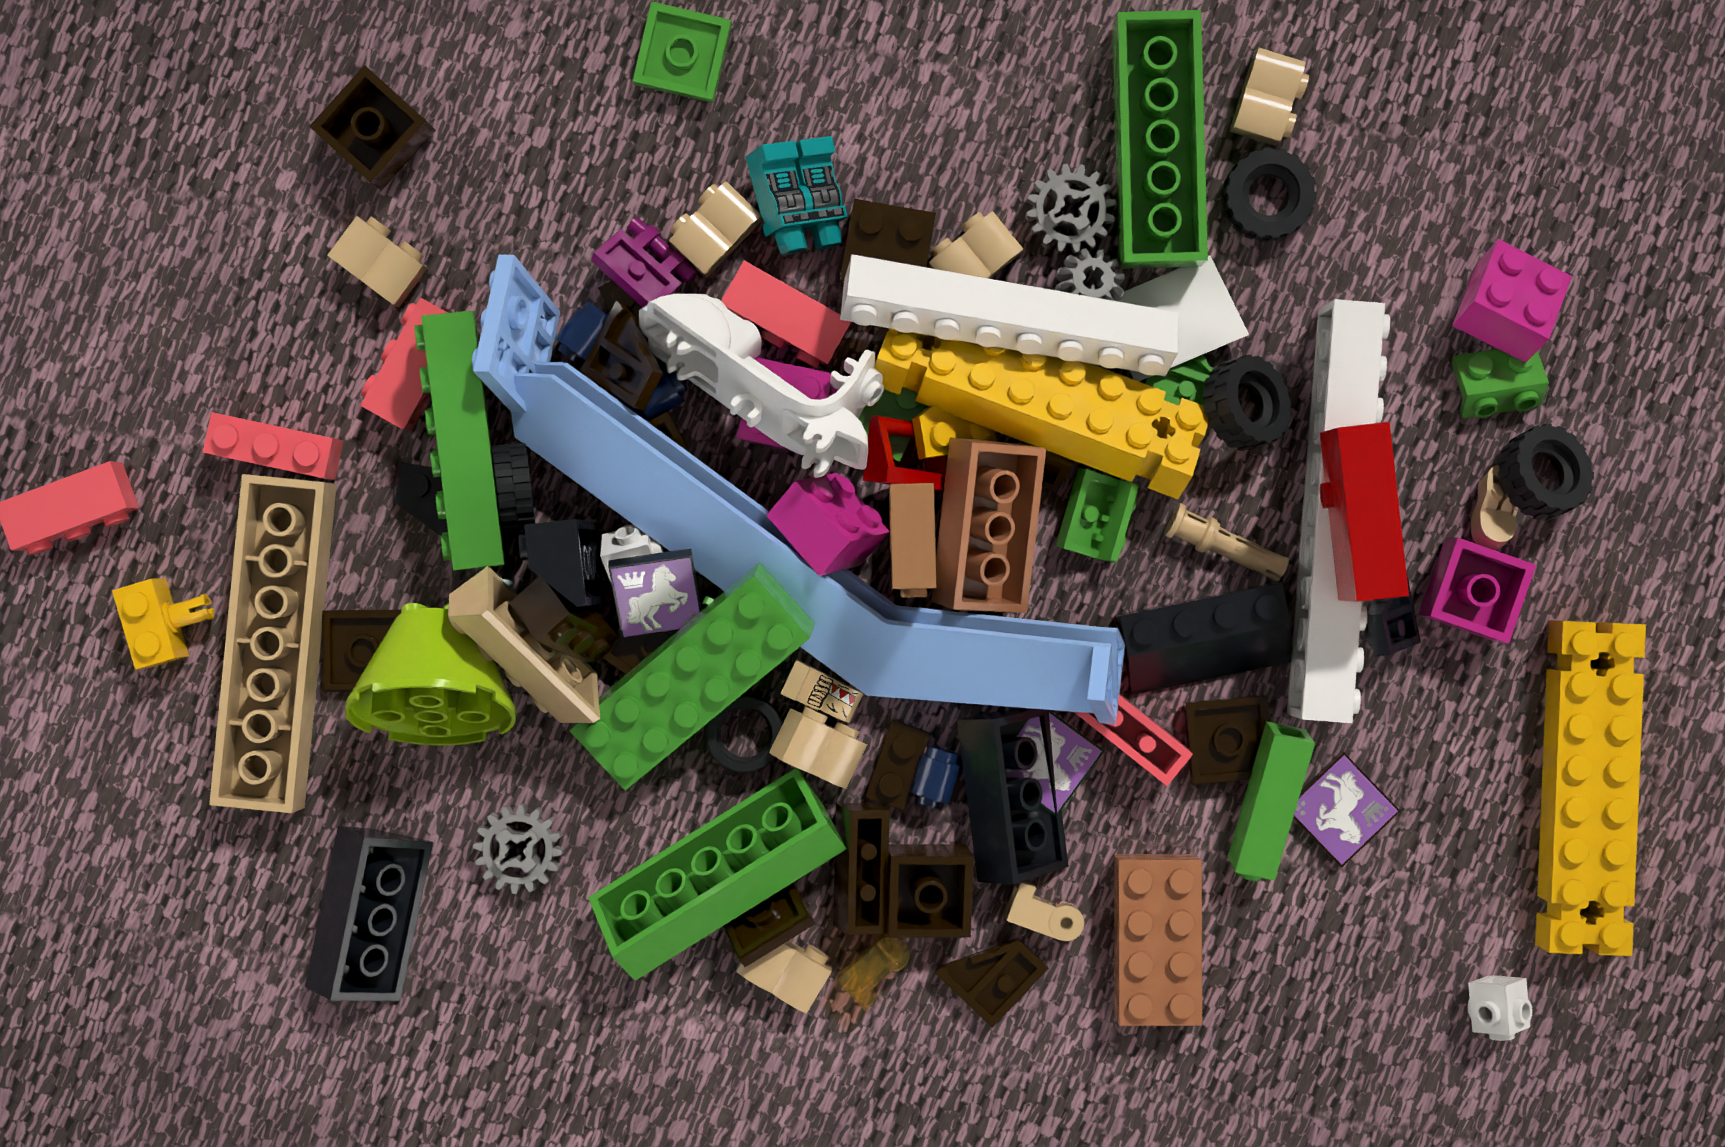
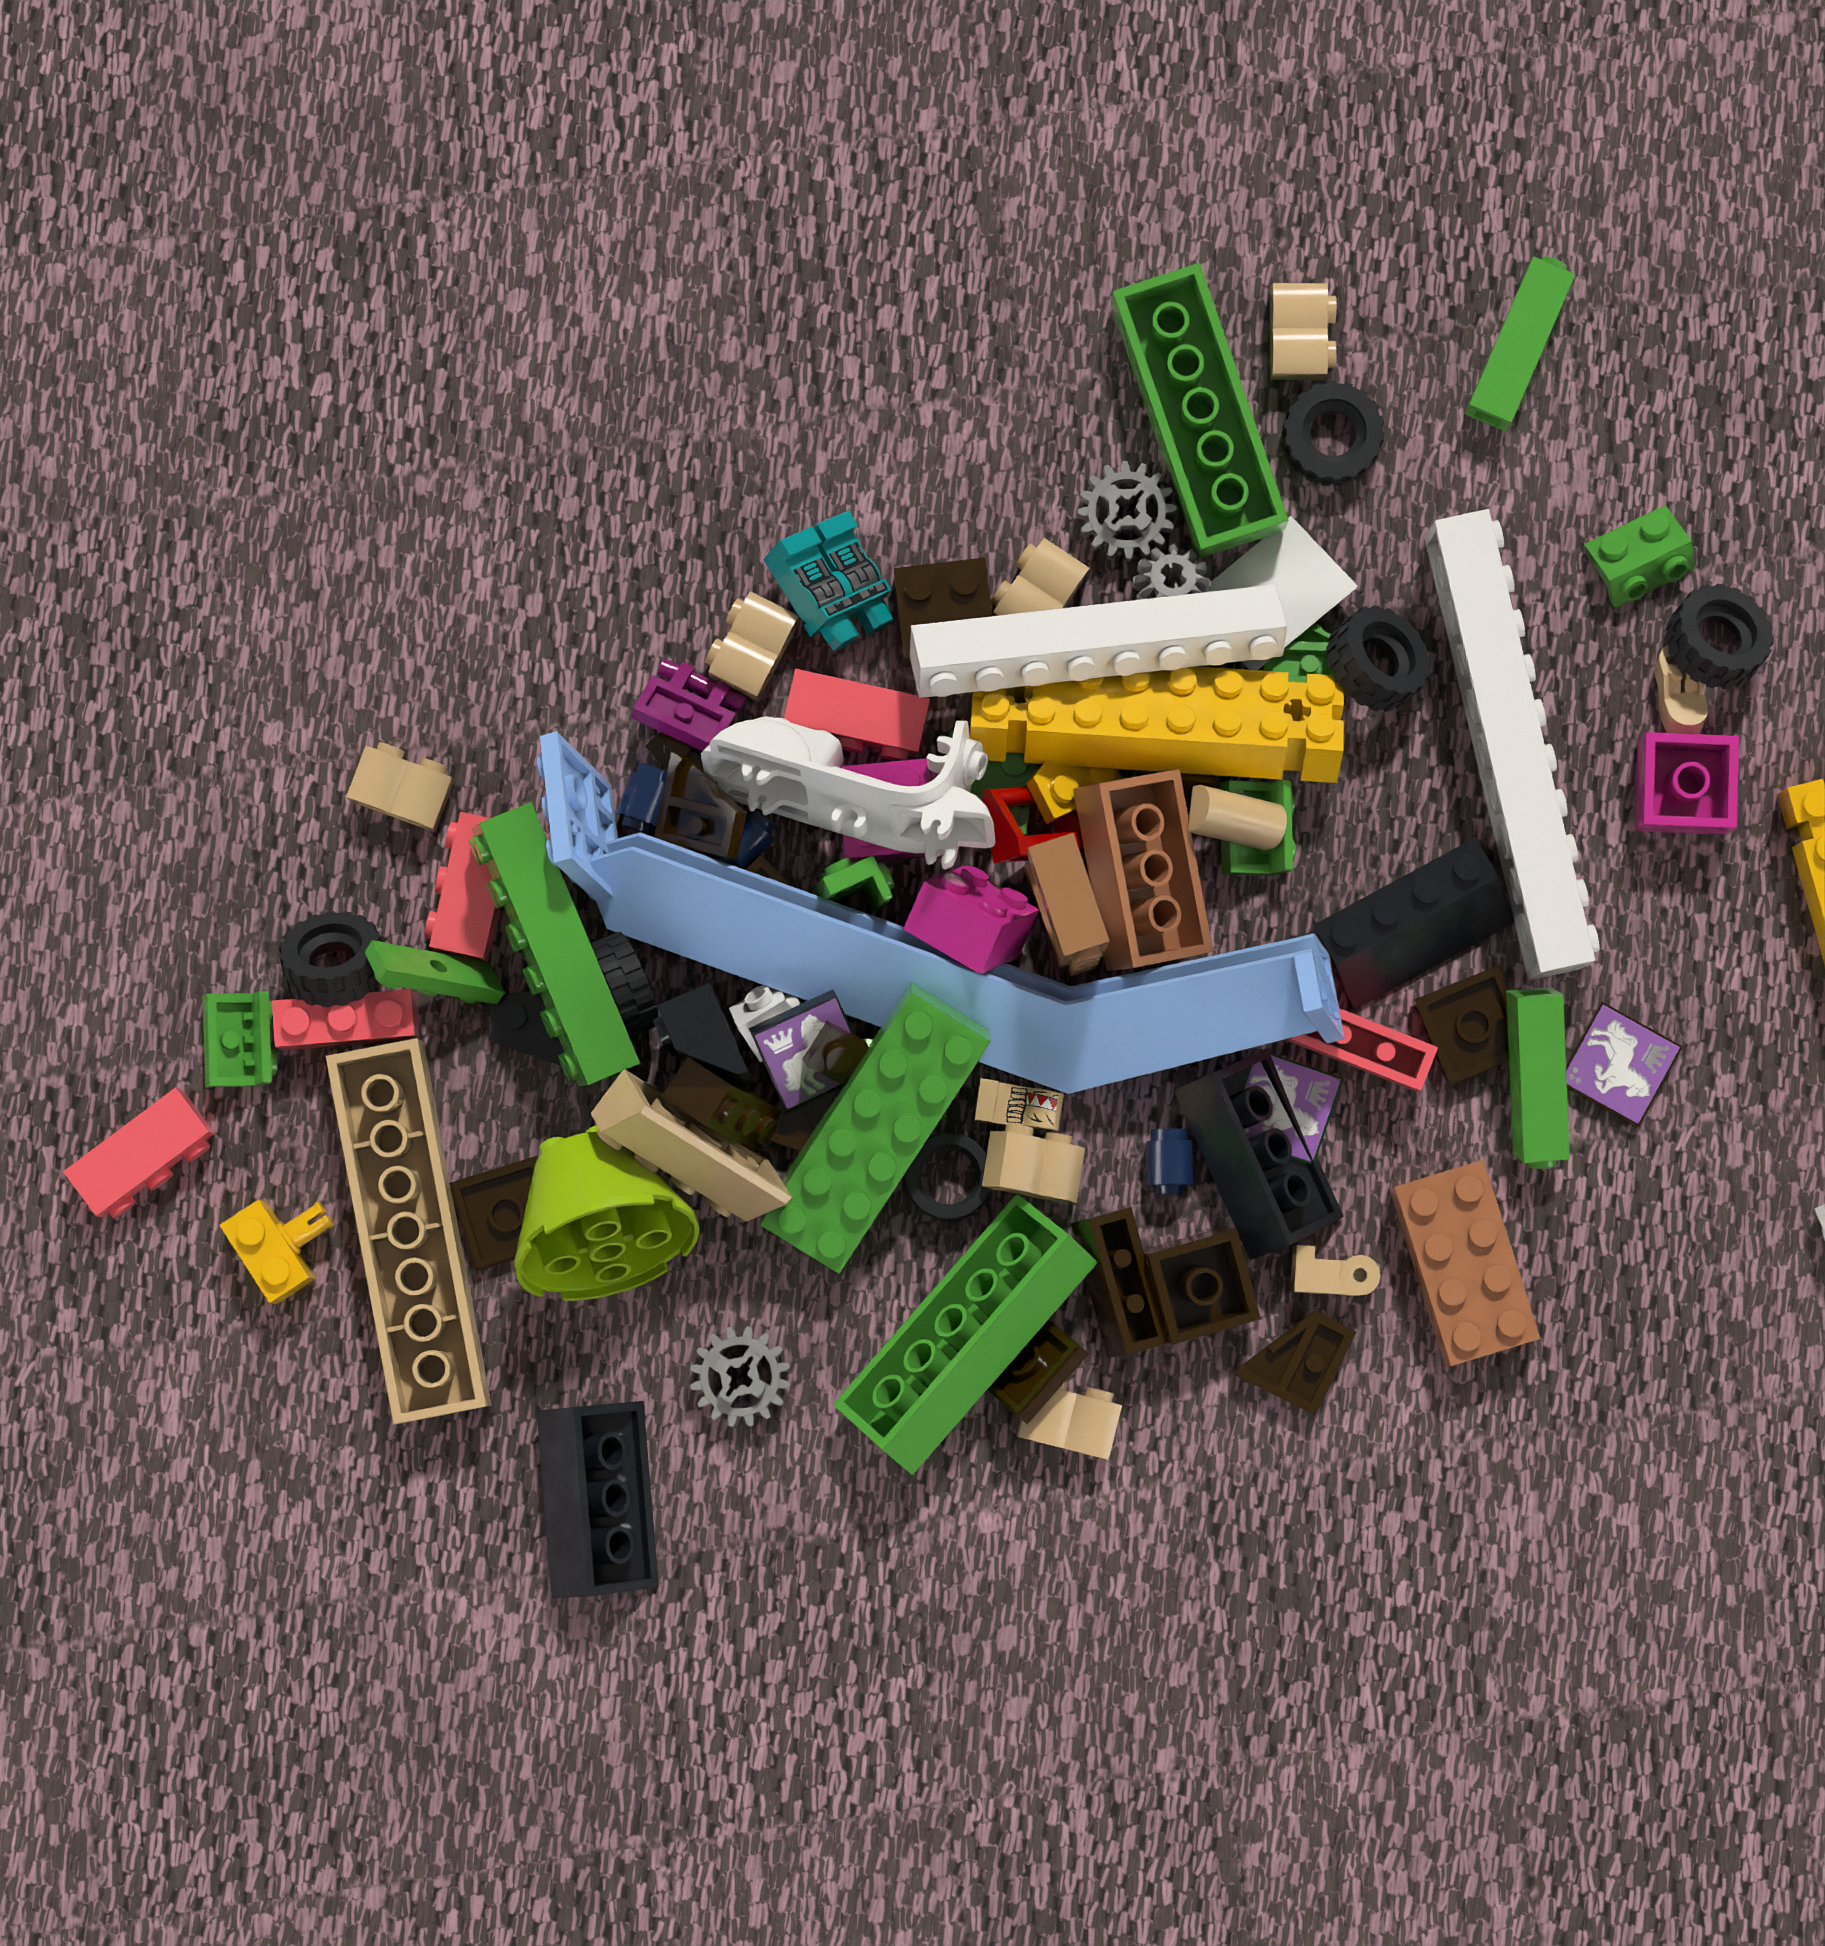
camera: 15 degrees left, 5 degrees down
(177, 435) = (238, 1040): none -> bright green bracket
(274, 415) = (322, 935): none -> black tyre
(355, 429) = (434, 973): none -> bright green tile
(372, 128) = (355, 648): dark brown brick -> none
(677, 603) = (835, 1053): none -> dark brown plate
(682, 52) = (661, 470): bright green plate -> none
(731, 454) = (845, 878): none -> bright green bracket
(872, 966) = (1174, 1372): clear yellow leg -> none
(897, 764) = (1124, 1161): dark brown plate -> none
(1082, 504) = (1236, 818): none -> tan brick
(1208, 535) = (1383, 813): tan pin -> none
(1363, 512) = (1532, 730): red brick -> none
(1392, 625) = (1605, 838): black wing -> none
(1455, 164) = (1520, 342): none -> bright green brick
(1512, 301) = (1625, 467): dark pink brick -> none

